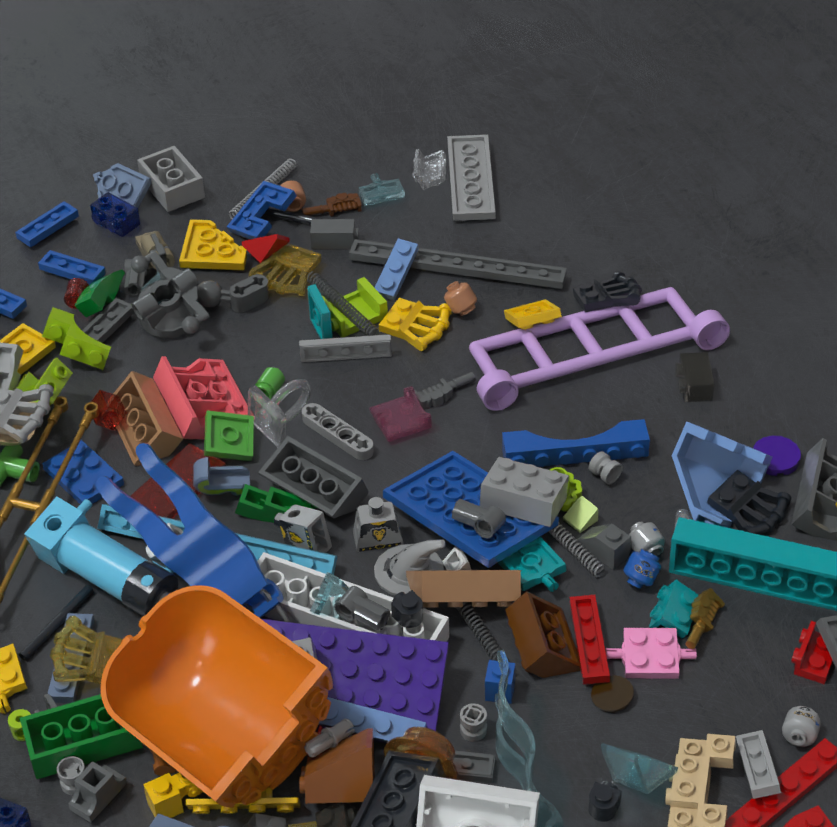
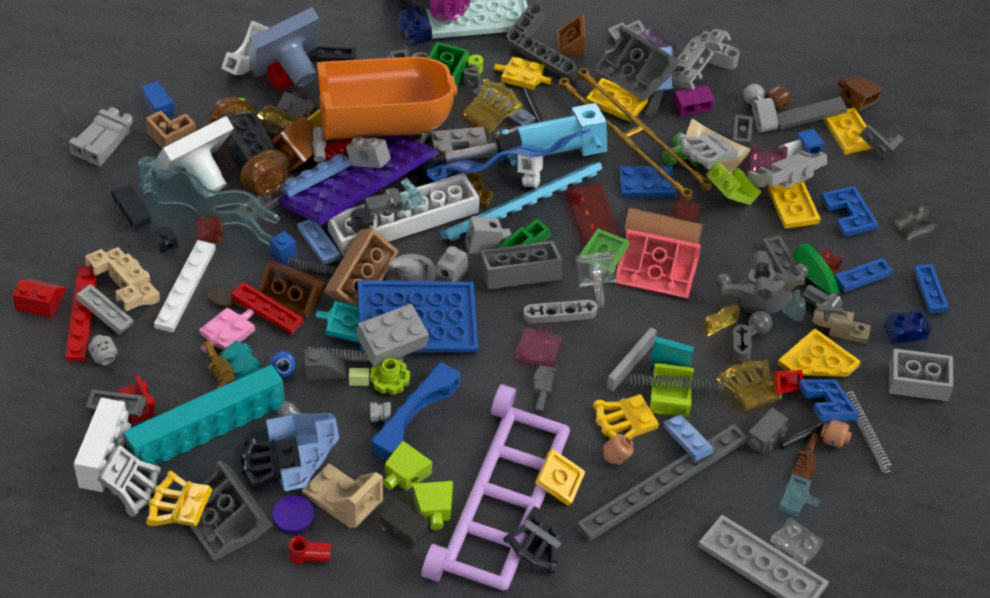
camera: 125 degrees right, 5 degrees up
(76, 343) = (794, 227): lime arch -> none
(123, 183) = (936, 344): sand blue tile -> none
(219, 479) = (570, 224): sand blue animal -> none
(231, 320) = (721, 319): none -> clear yellow plate
(270, 381) = (636, 301): bright green brick -> none
(460, 653) = (319, 242): none -> medium blue plate
(473, 722) = (273, 228): light grey wheel -> none
(485, 521) = (388, 297): dark grey piece -> none
(550, 770) = (209, 229): none -> clear red brick
(636, 769) = (162, 255): clear light blue slope -> none
(639, 735) = (184, 286): none -> white plate
(644, 405) = (406, 467): none -> lime torso
(647, 537) = (302, 385): light grey head -> none
(650, 373) = (434, 501): none -> lime torso
(718, 403) = (343, 497): none -> tan bracket
(802, 417) = (309, 551): none -> red piece

